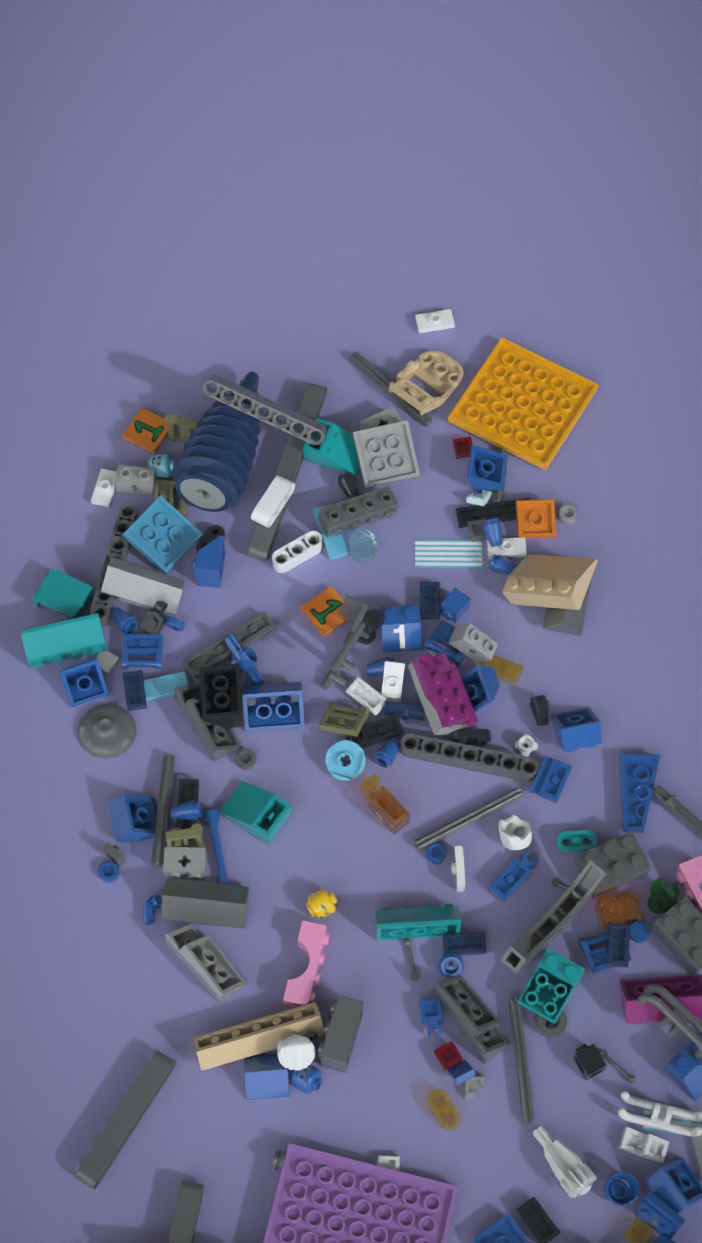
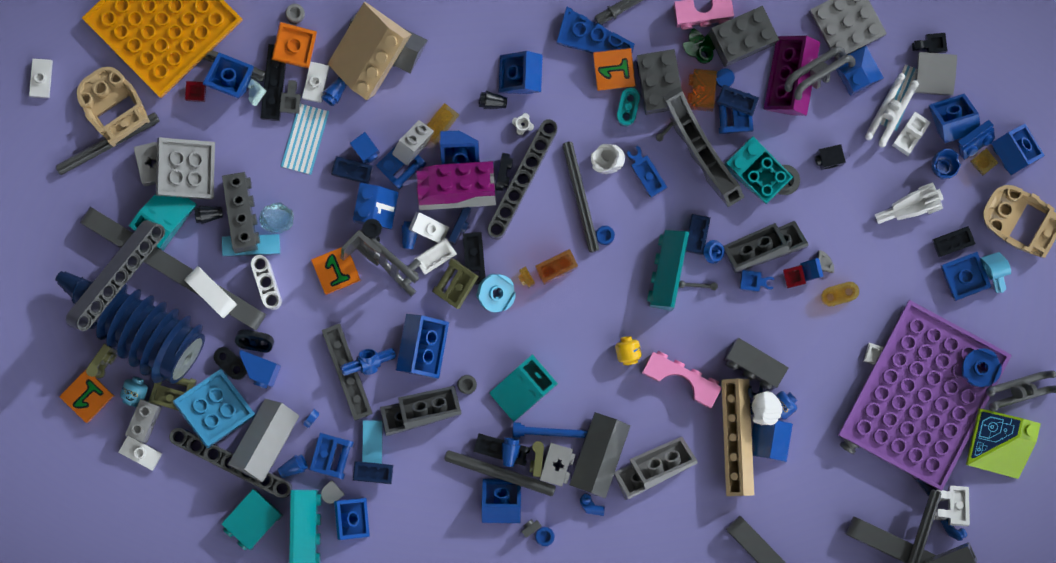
camera: 75 degrees left, 20 degrees up
(107, 731) = (402, 508): dark grey hat -> none
(153, 620) = (301, 437): black plate -> none
(222, 695) = (402, 391): black slope -> none
(237, 555) = (254, 341): none -> black plate
(387, 753) = (497, 252): blue cone -> none
(458, 868) = (627, 220): white plate -> none
(493, 531) = (300, 90): blue cone -> none
(521, 1061) = (814, 215): dark grey axle -> none
(551, 779) = (562, 111): blue plate -> none
(610, 816) = (614, 69): none -> orange tile
(630, 1078) = (824, 143): dark grey hinge -> none

